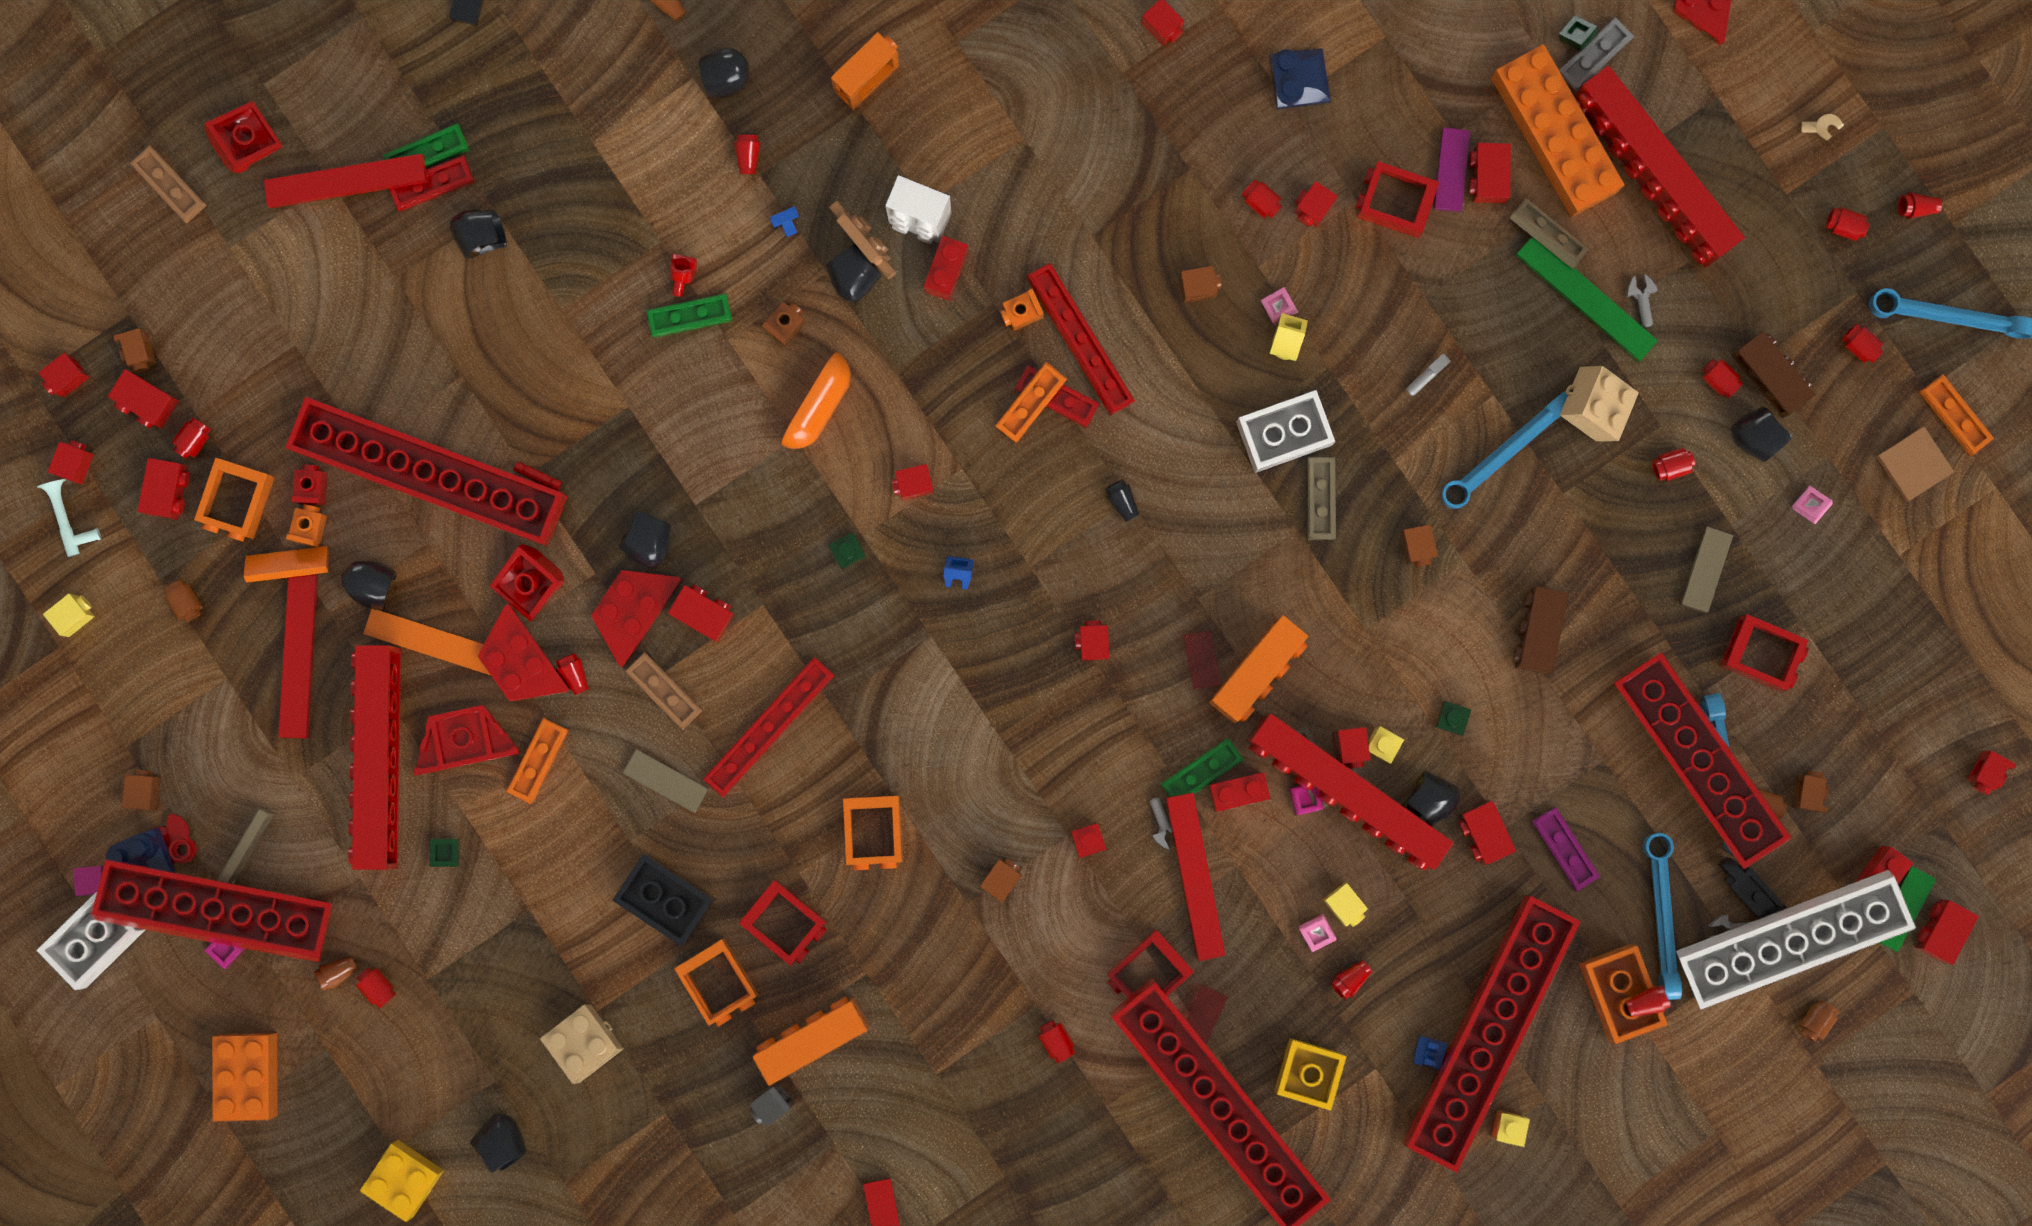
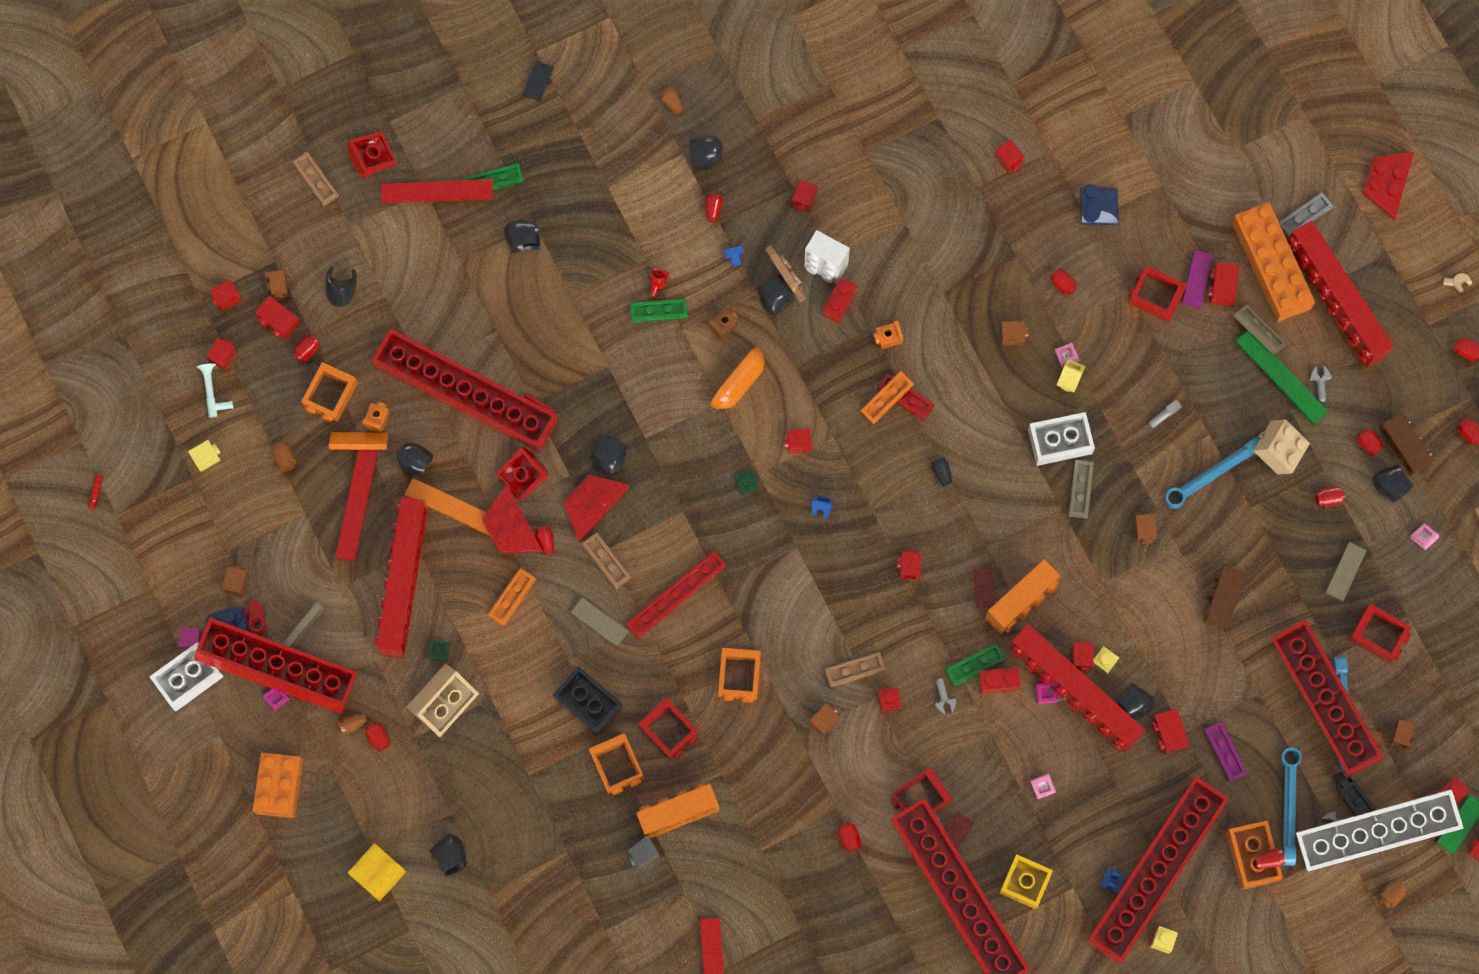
camera: 10 degrees right, 10 degrees down
(163, 489) = (282, 379): red brick -> none
(226, 348) = (340, 291): none -> black piece
(316, 493) = (382, 396): red brick -> none
(441, 180) = (501, 199): red tile -> none
(459, 923) = (442, 700): none -> tan slope
(462, 740) = (462, 575): red wing -> none
(582, 1043) = (516, 793): tan brick -> none
(701, 613) = (640, 510): red brick -> none
(866, 70) = (802, 162): orange window -> none
(875, 120) = (804, 196): none -> red brick
(1034, 801) = (854, 669): none -> medium nougat tile
(1080, 339) = (926, 360): red tile -> none
(1195, 876) = (961, 735): red tile -> none
(1314, 204) = (1099, 290): red brick -> none
(1346, 905) = (1065, 769): light yellow brick -> none
(1350, 980) = (1061, 822): red cone -> none
(1453, 718) = (1156, 651): dark green plate -> none
(1578, 33) = (1294, 199): plate -> none

